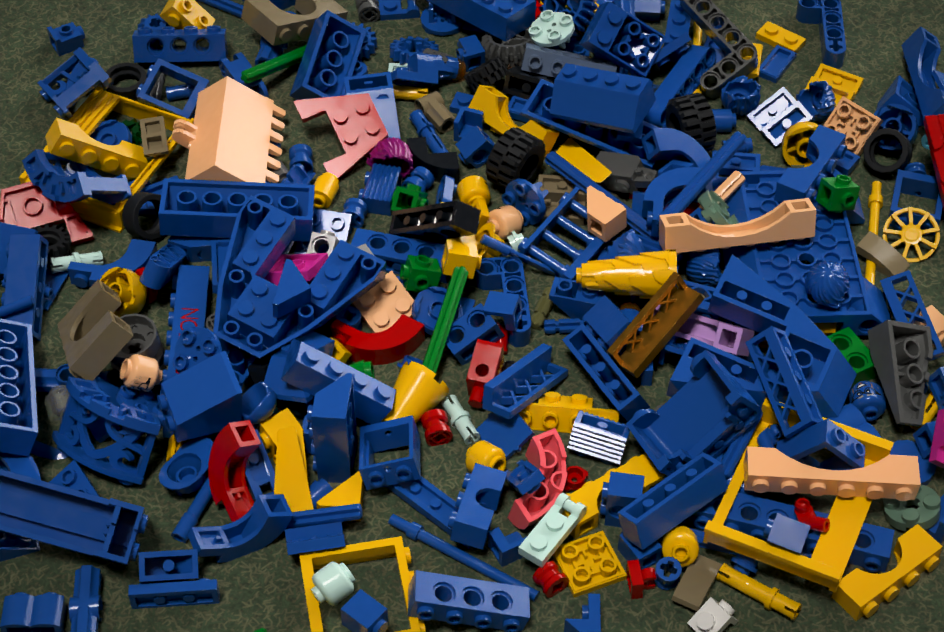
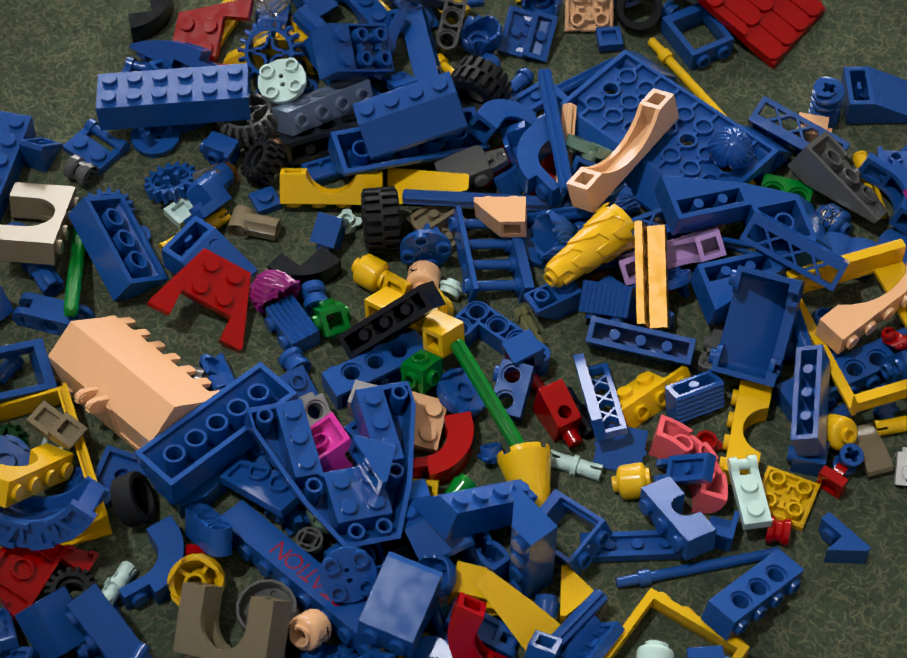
camera: 45 degrees left, 5 degrees up
(301, 154) = (192, 349): blue wheel -> none
(325, 190) = (243, 357): yellow brick -> none
(427, 130) = (268, 248): blue pin -> none
(436, 427) = (568, 485): red wheel -> none
(446, 189) = (348, 292): blue plate -> none
(466, 121) = (297, 218): blue panel -> none
(507, 250) = (464, 300): blue piece -> none
(562, 325) = (564, 327): blue axle -> none
(618, 493) = (768, 428): blue brick -> none
(769, 436) = (812, 302): blue arm -> none
(796, 141) = (573, 39): yellow cylinder -> none
(823, 151) = (608, 40): blue arch -> none
(825, 434) = (863, 281): blue window -> none
(838, 193) = (661, 69): green brick -> none
(885, 256) = (721, 97): dark tan slope -> none
(912, 234) = (723, 65): yellow wheel -> none

